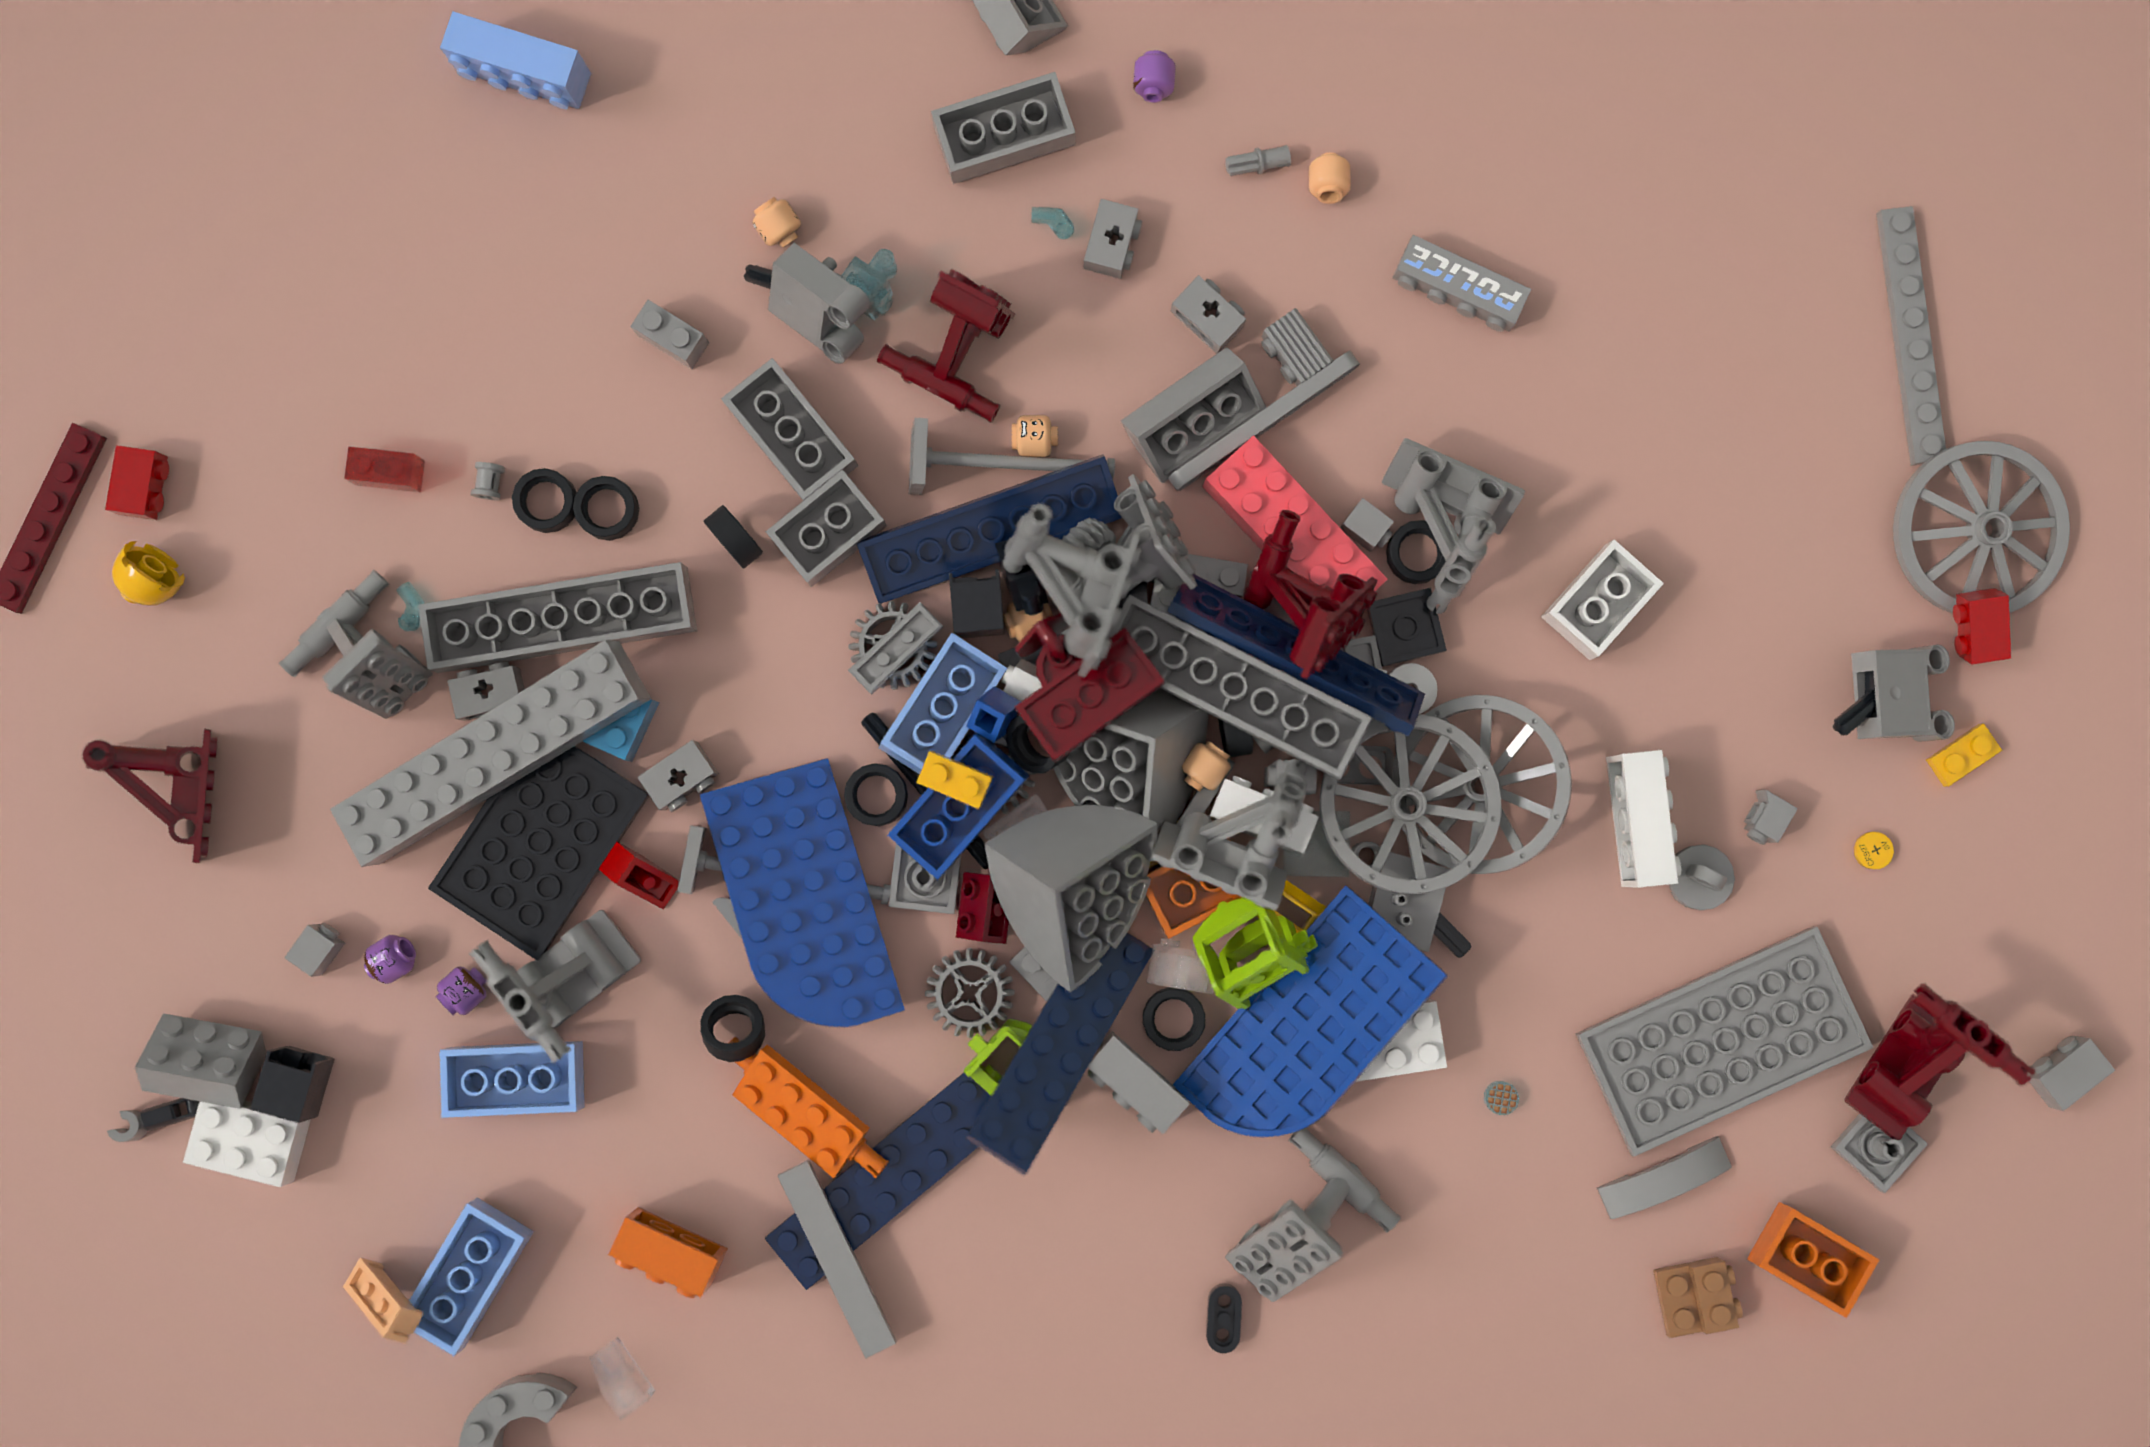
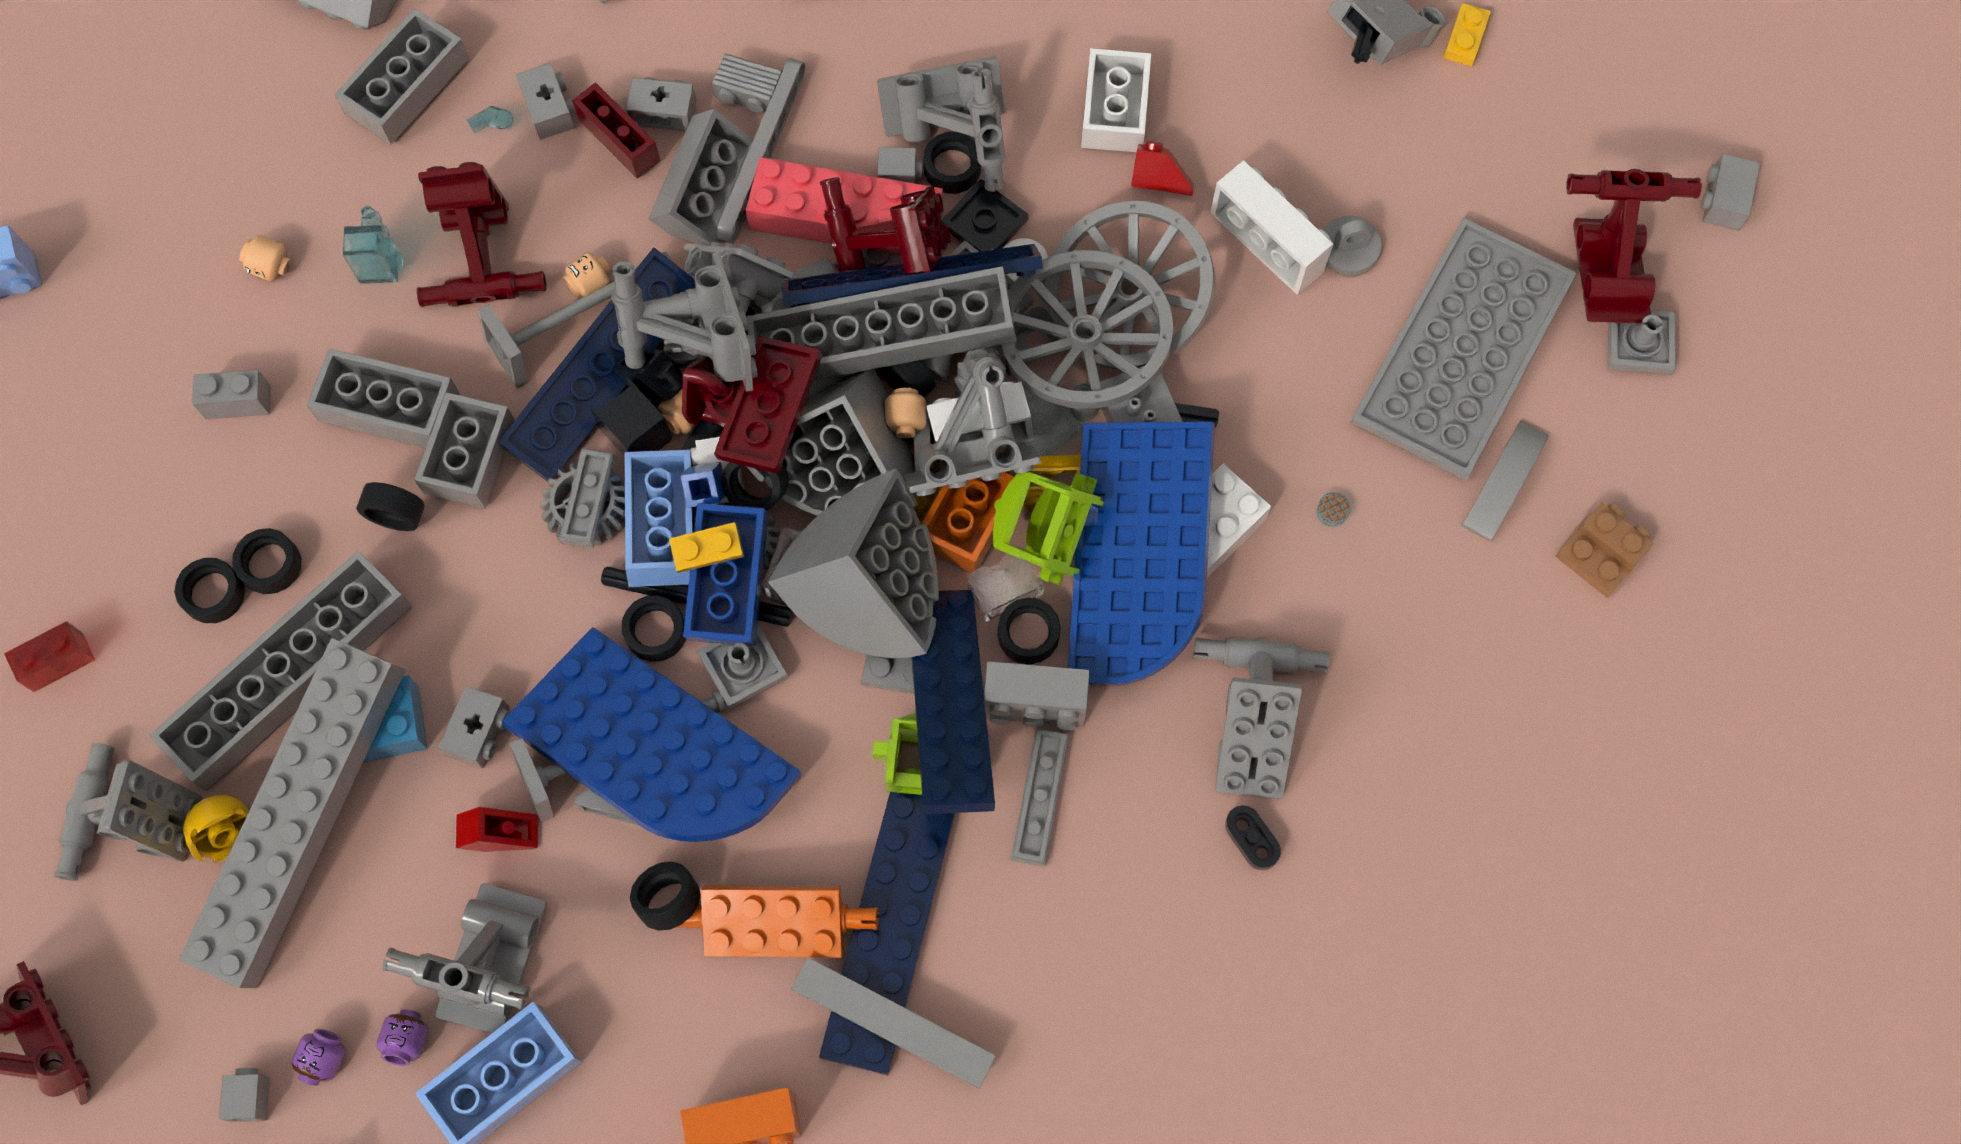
camera: 30 degrees left, 15 degrees down
(411, 618) = (150, 752): clear light blue arm -> none
(426, 715) = (214, 826): none -> yellow cylinder
(468, 687) = (241, 777): light grey brick -> none
(487, 481) = (148, 608): light grey bush -> none
(539, 848) = (390, 868): black plate -> none
(813, 300) = (329, 287): light grey piece -> none
(947, 1009) = (832, 722): light grey gear -> none
(980, 911) = (809, 657): dark red brick -> none
(1082, 1159) = (1040, 797): none -> light grey tile
(1150, 315) = (616, 130): none -> dark red brick
(1589, 694) = (1159, 170): none -> red slope
(1768, 818) = (1363, 167): light grey window -> none
(1813, 1259) = (1664, 453): orange brick -> none
(1873, 850) = (1459, 141): yellow piece -> none

